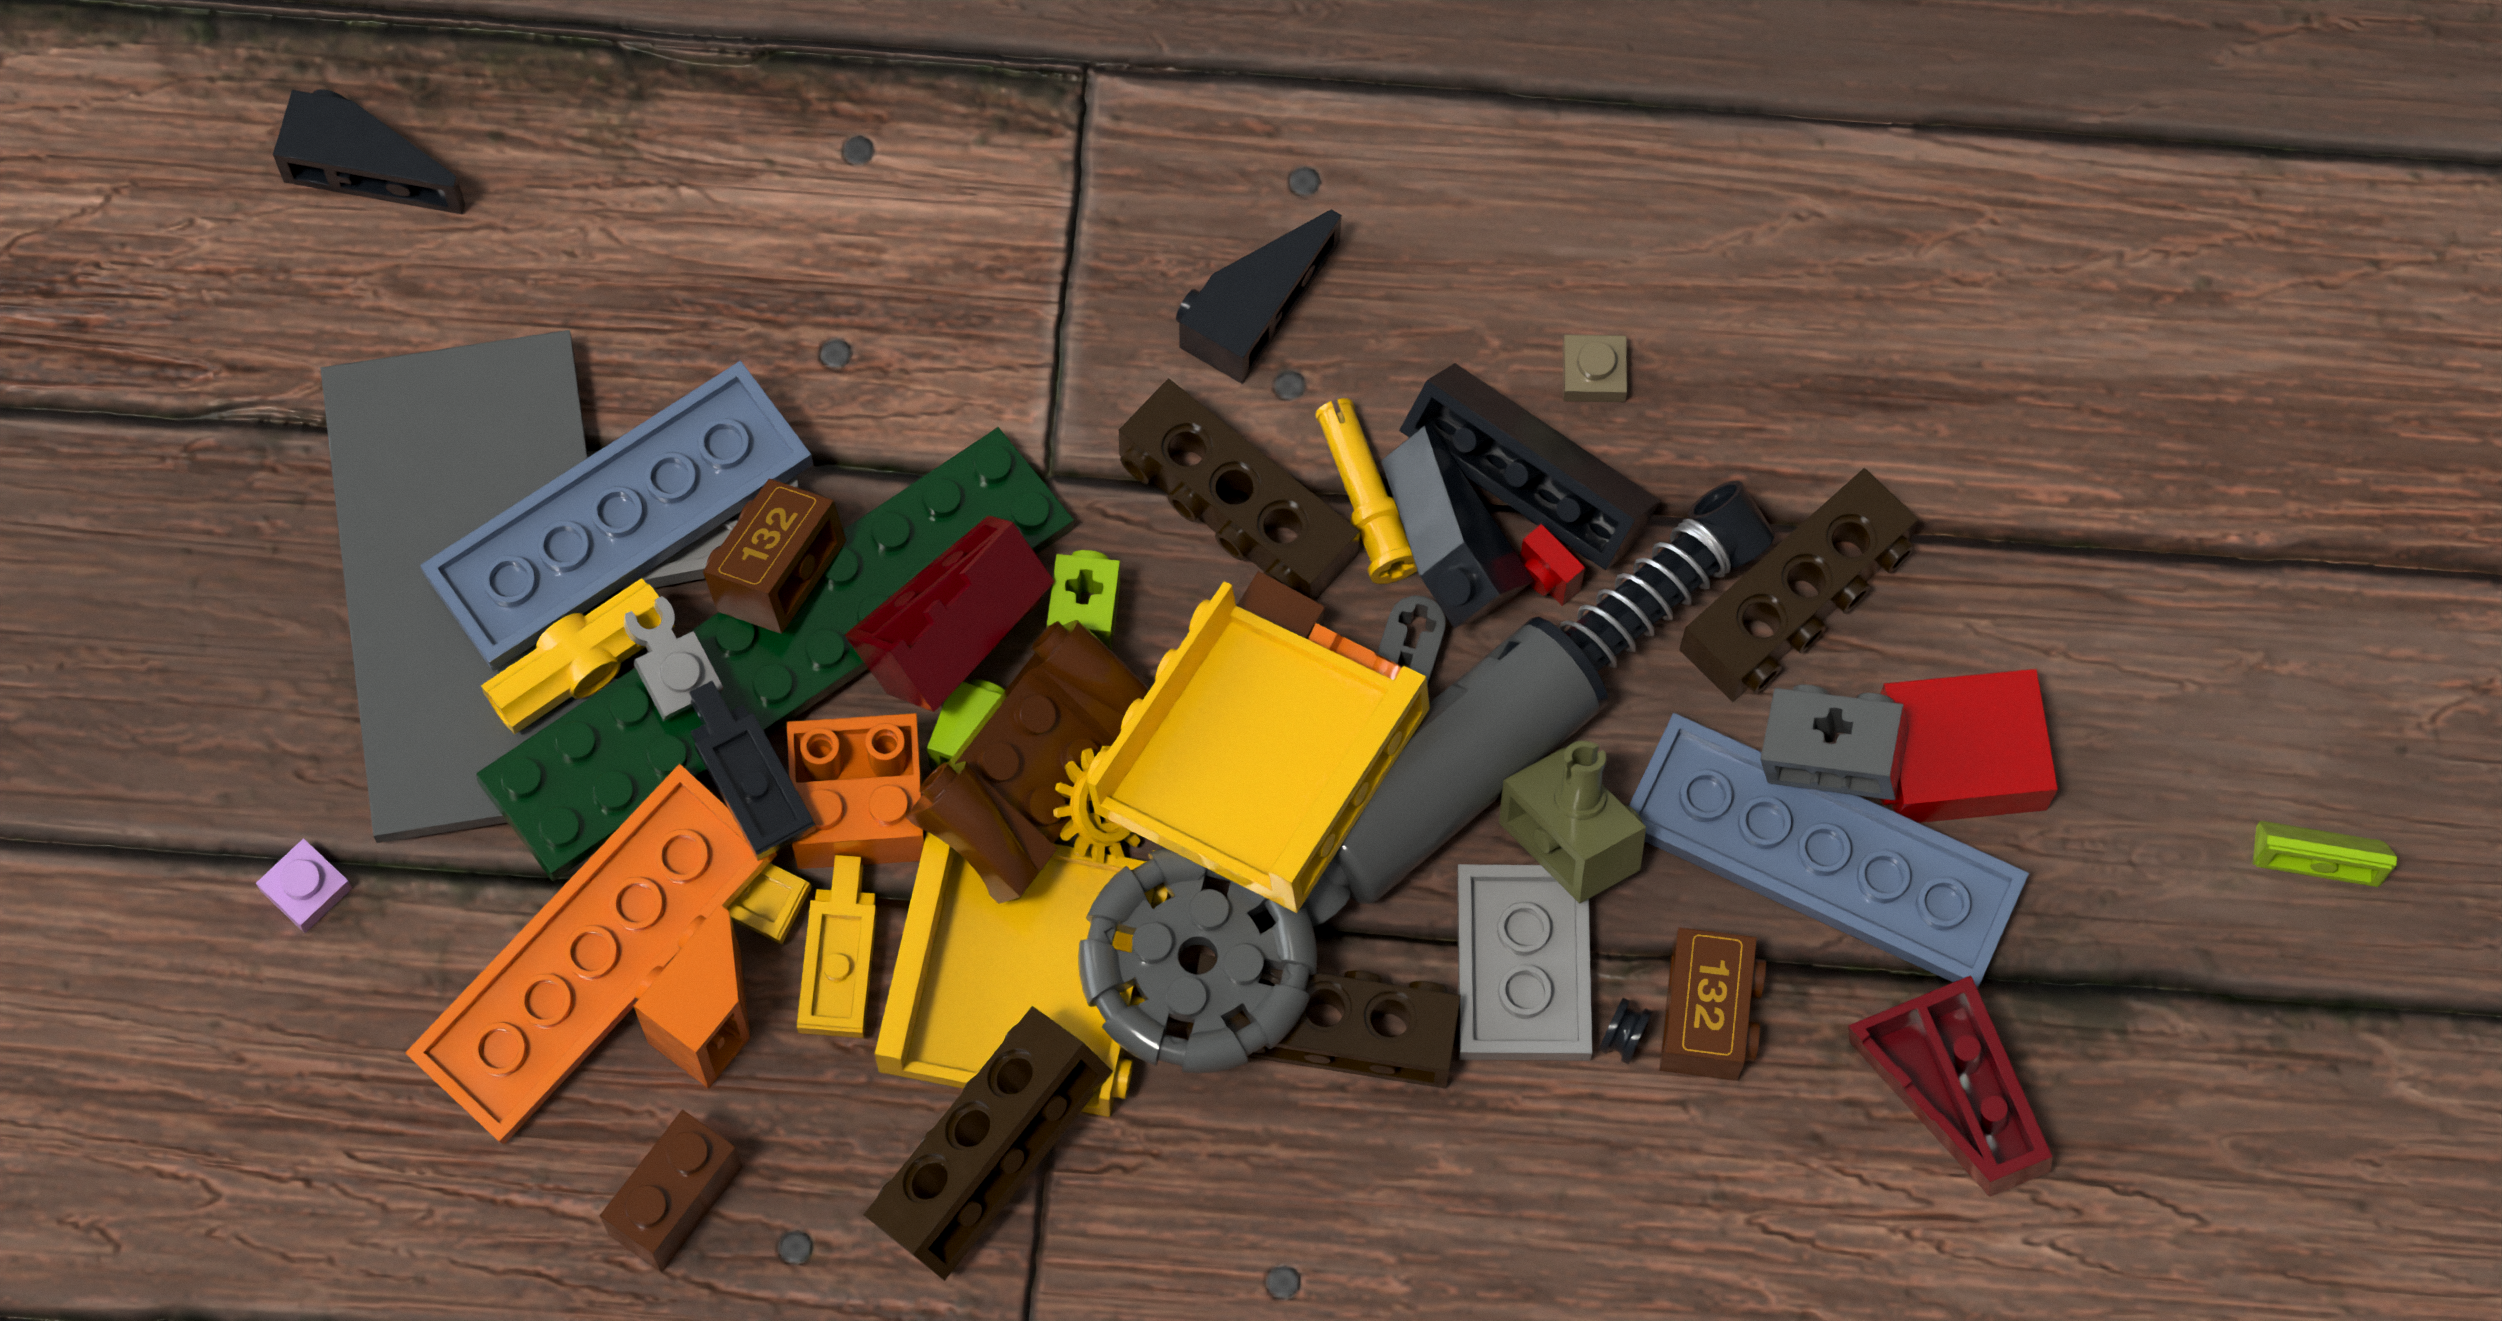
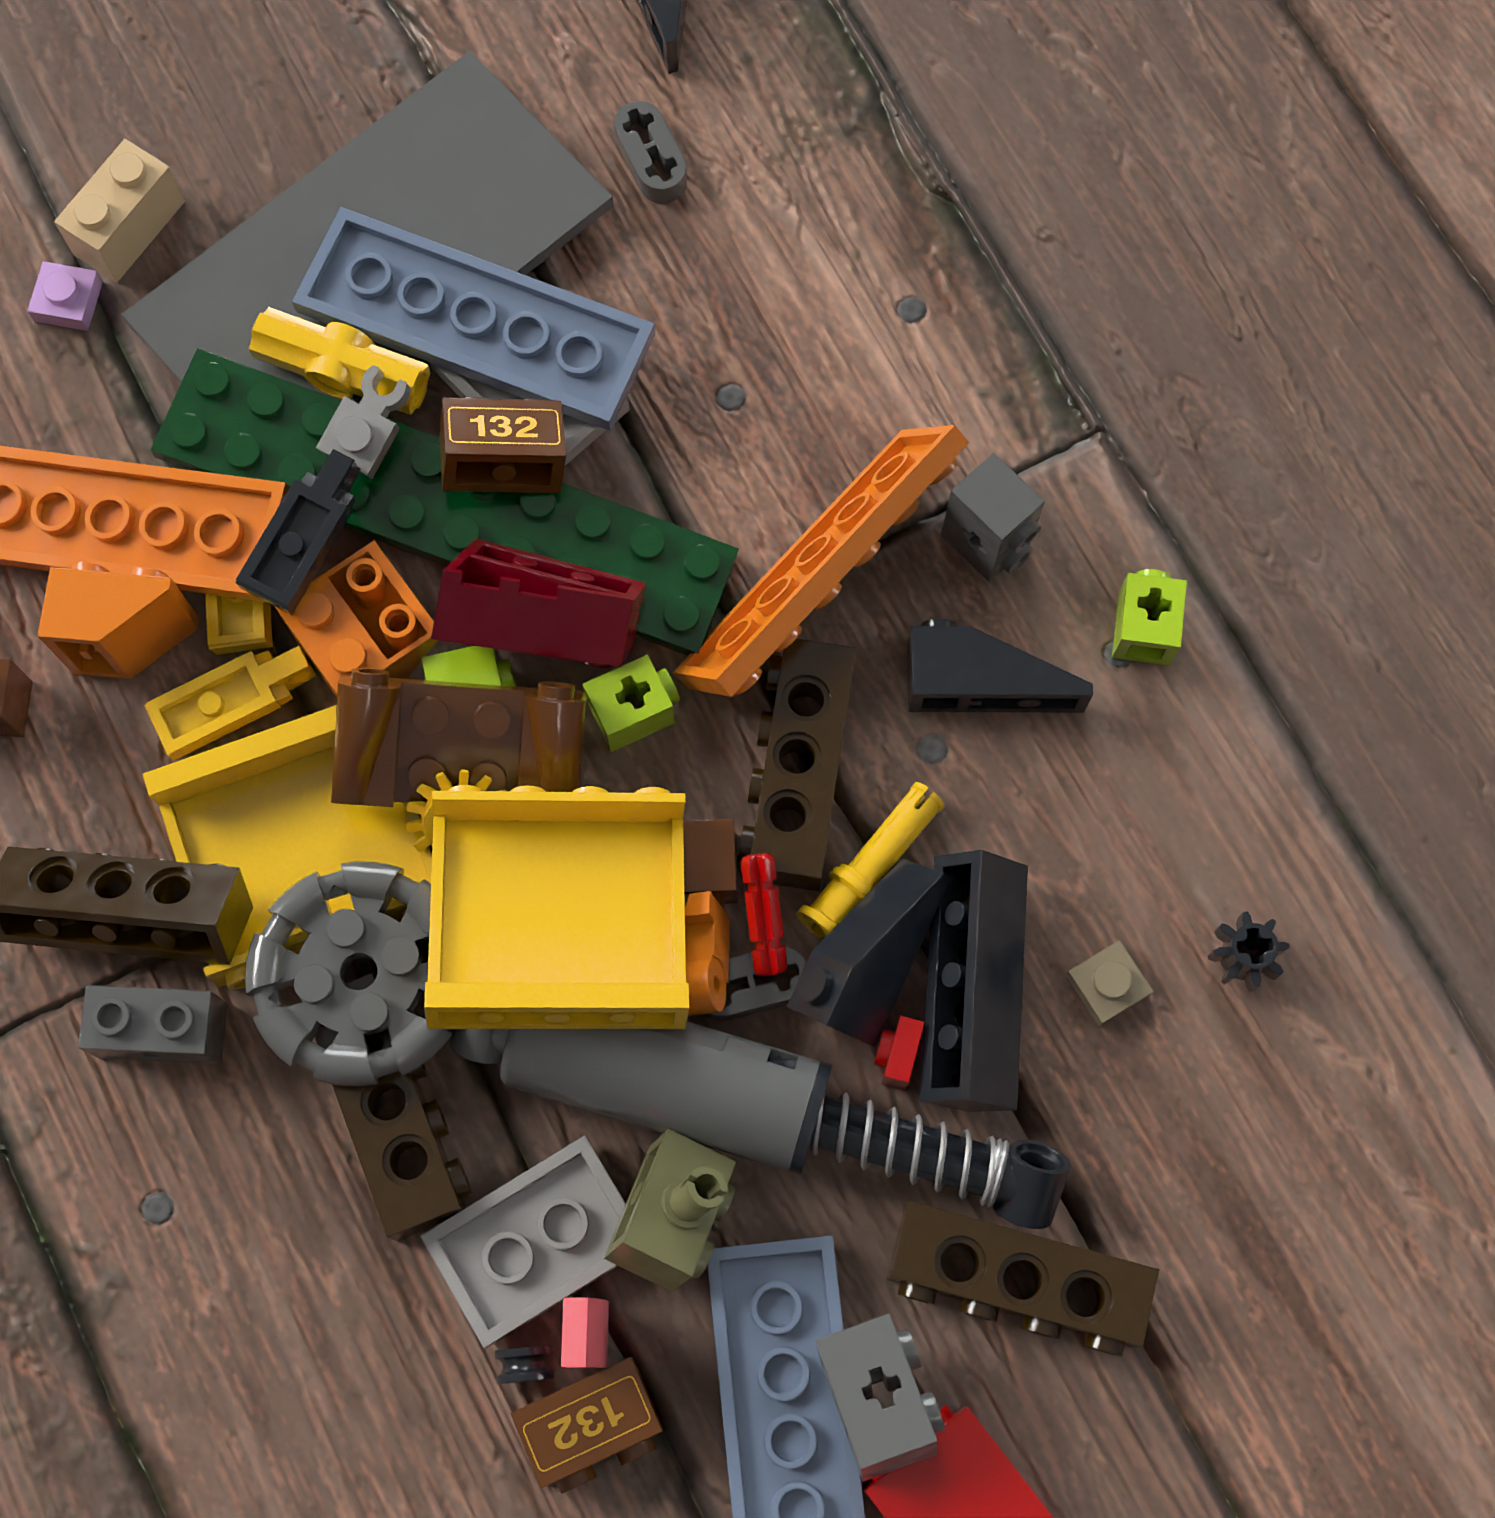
camera: 60 degrees right, 5 degrees up
(259, 777) = (120, 210): none -> tan brick
(539, 274) = (660, 147): none -> dark grey beam
(1064, 359) = (815, 564): none -> orange plate
(1118, 1179) = (153, 1024): none -> dark grey brick
(1127, 195) = (993, 518): none -> dark grey brick
(1295, 132) = (1142, 638): none -> lime brick
(1362, 595) = (764, 914): none -> red axle
(1637, 948) = (584, 1333): none -> coral slope
(1645, 223) = (1258, 938): none -> black gear

